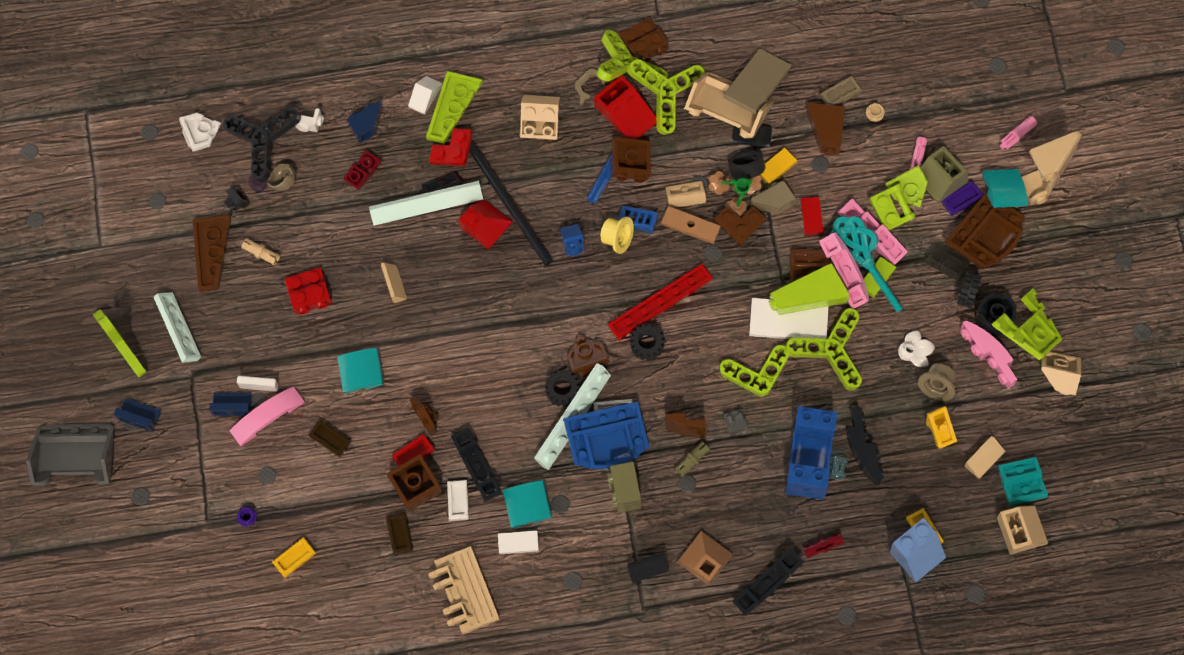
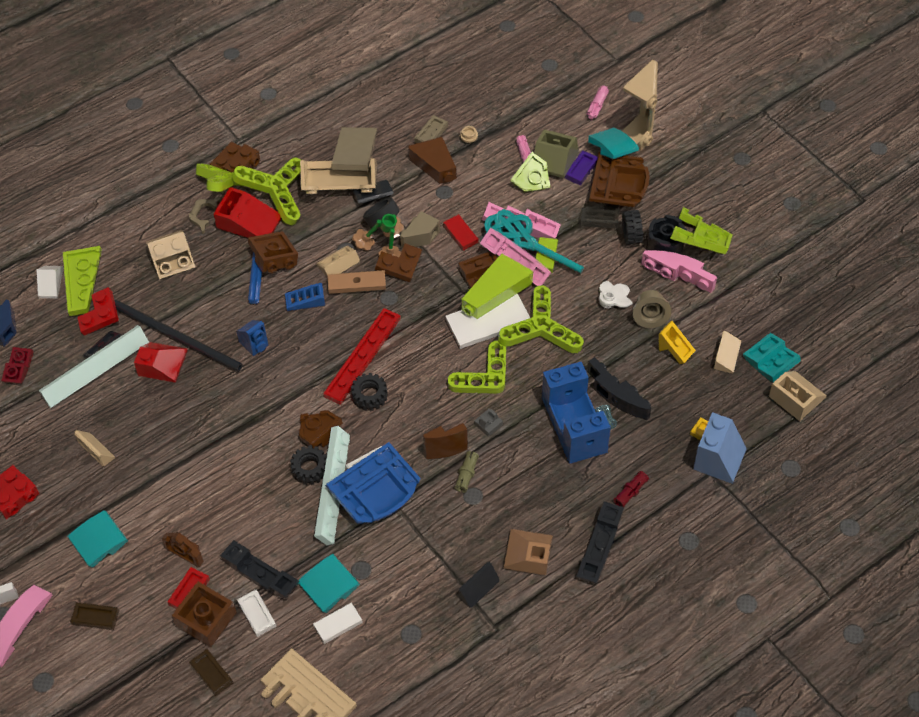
camera: 30 degrees left, 15 degrees down
(617, 233) = (293, 313): light yellow piece -> none
(626, 491) = (418, 521): olive brick -> none
(778, 166) = (409, 206): yellow tile -> none
(886, 210) = (524, 200): lime plate -> none
(1062, 371) = (752, 257): tan slope -> none

